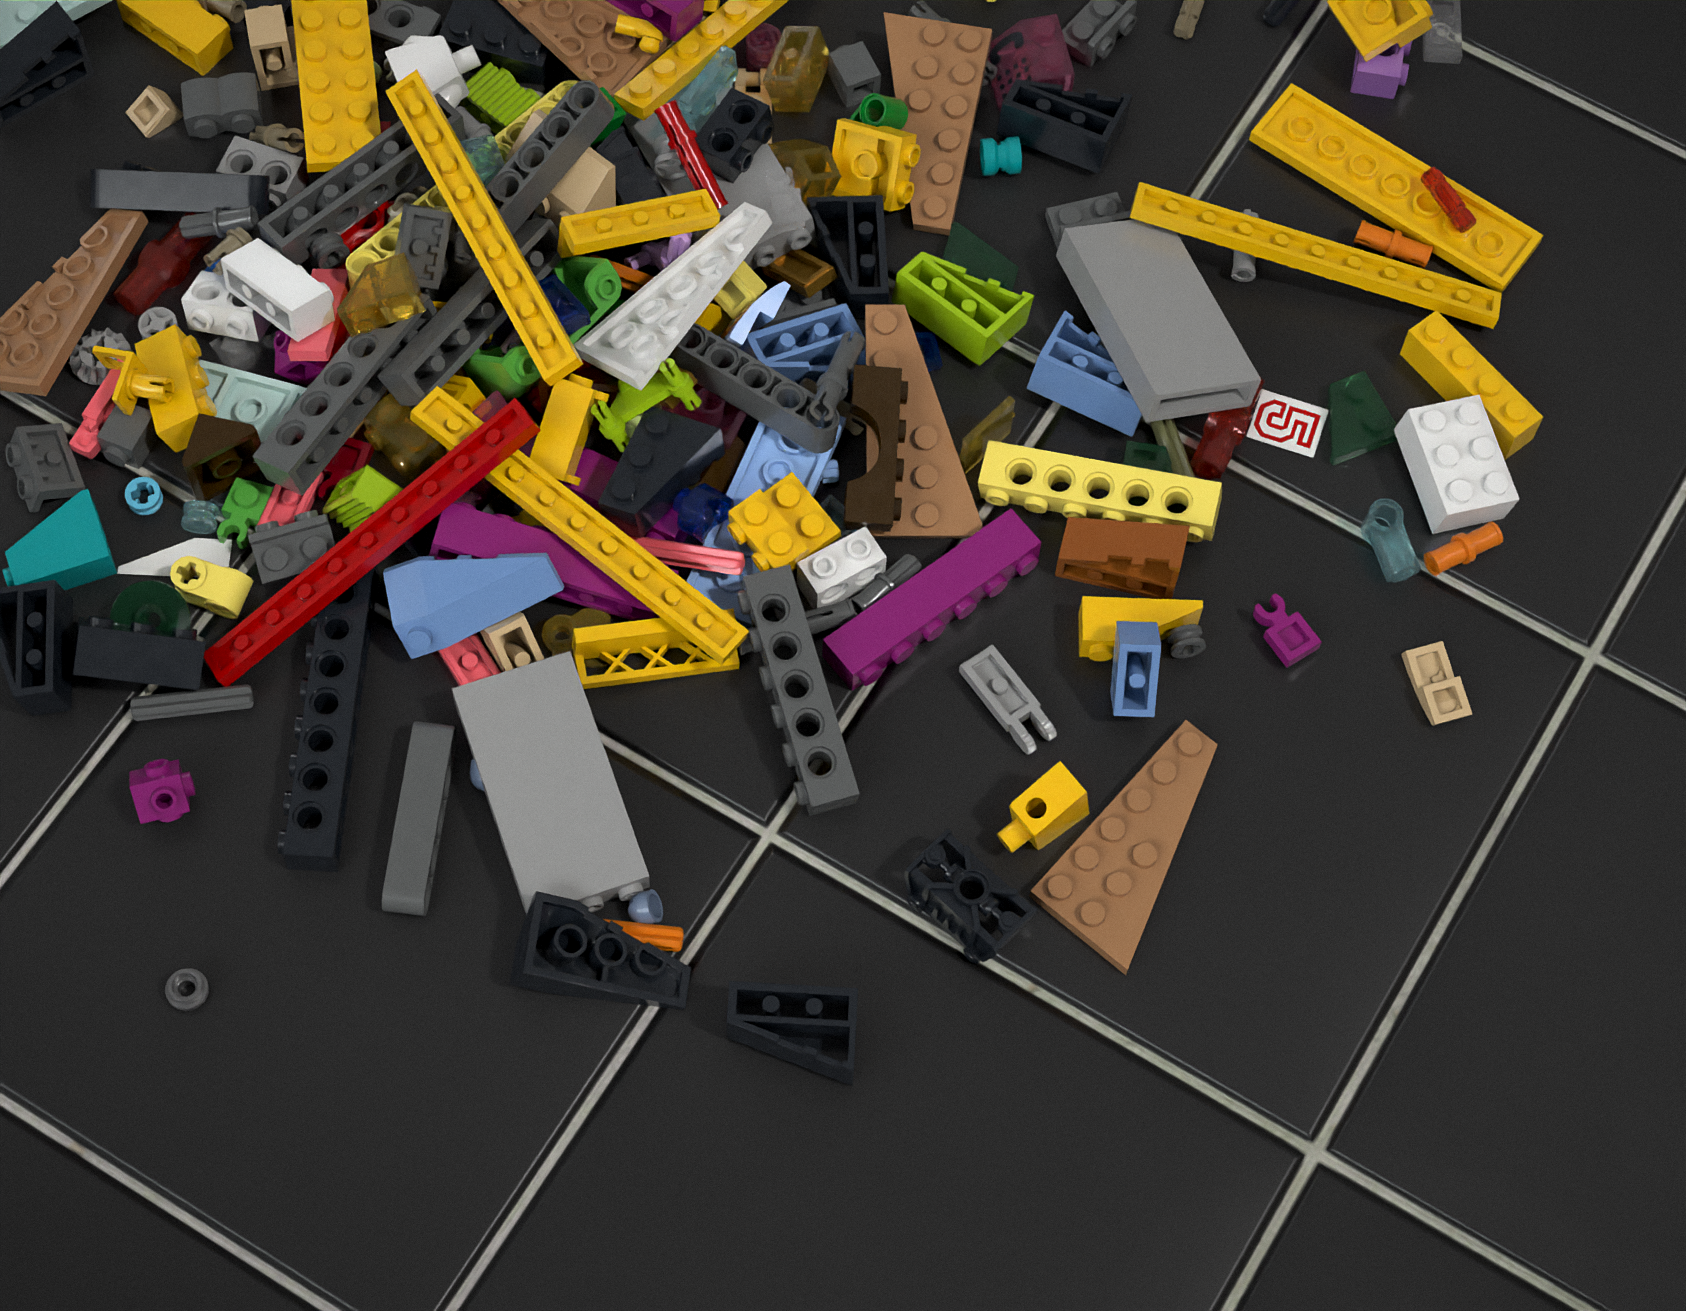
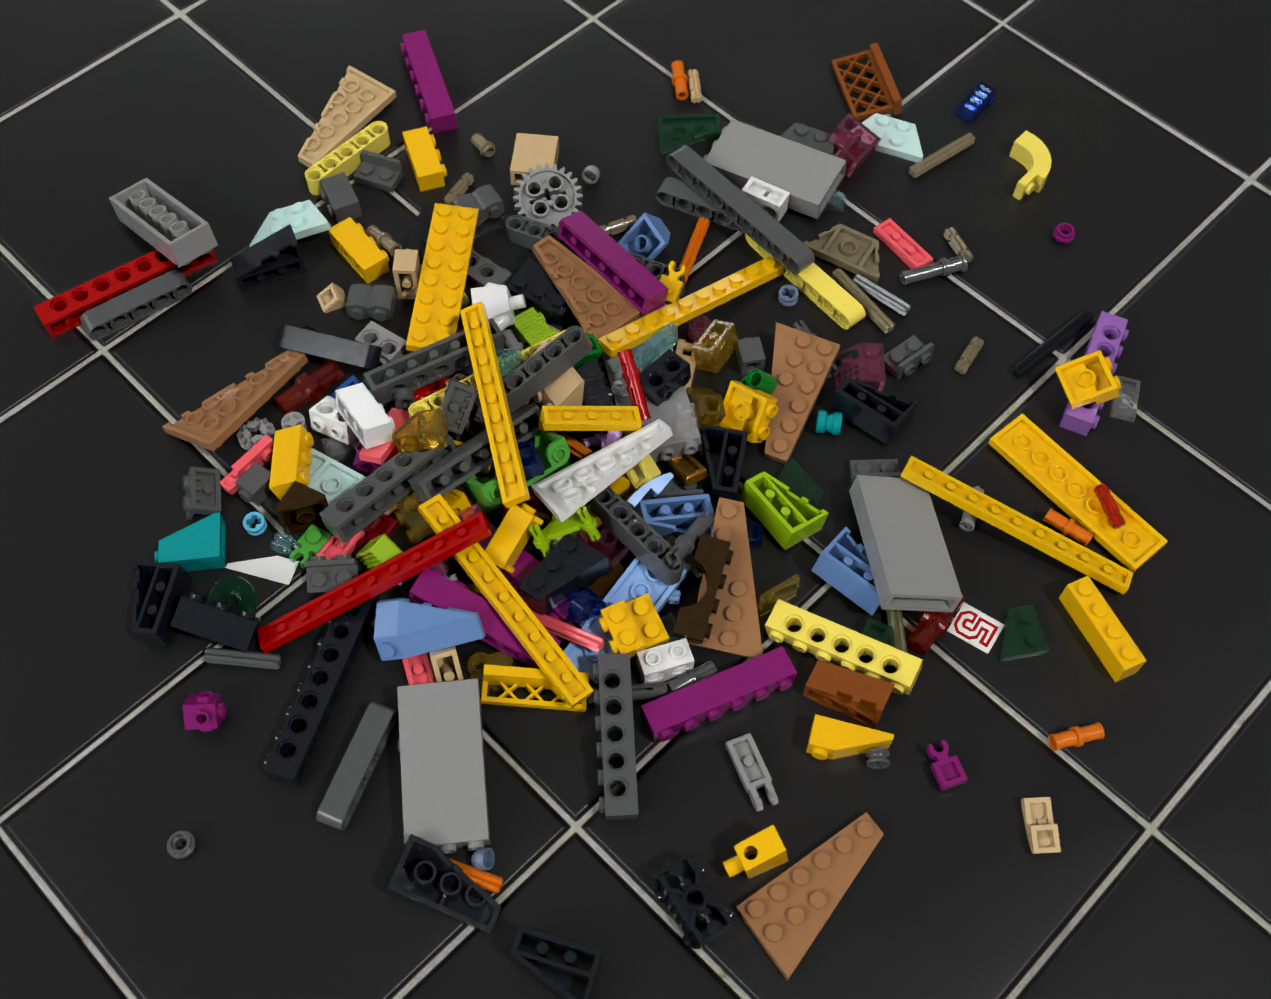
camera: 15 degrees right, 5 degrees down
(133, 379) = (264, 452): yellow bracket -> none
(217, 587) = (278, 589): light yellow piece -> none
(219, 222) = (344, 369): dark grey axle -> none
(234, 240) = (349, 380): dark tan pin -> none
(278, 137) = (396, 326): dark tan axle -> none
(642, 29) = (626, 304): yellow arm -> none
(1135, 668) = (839, 771): medium blue brick -> none
(1390, 543) = (1028, 723): clear light blue piece -> none
(1456, 464) = (1082, 679): white brick -> none

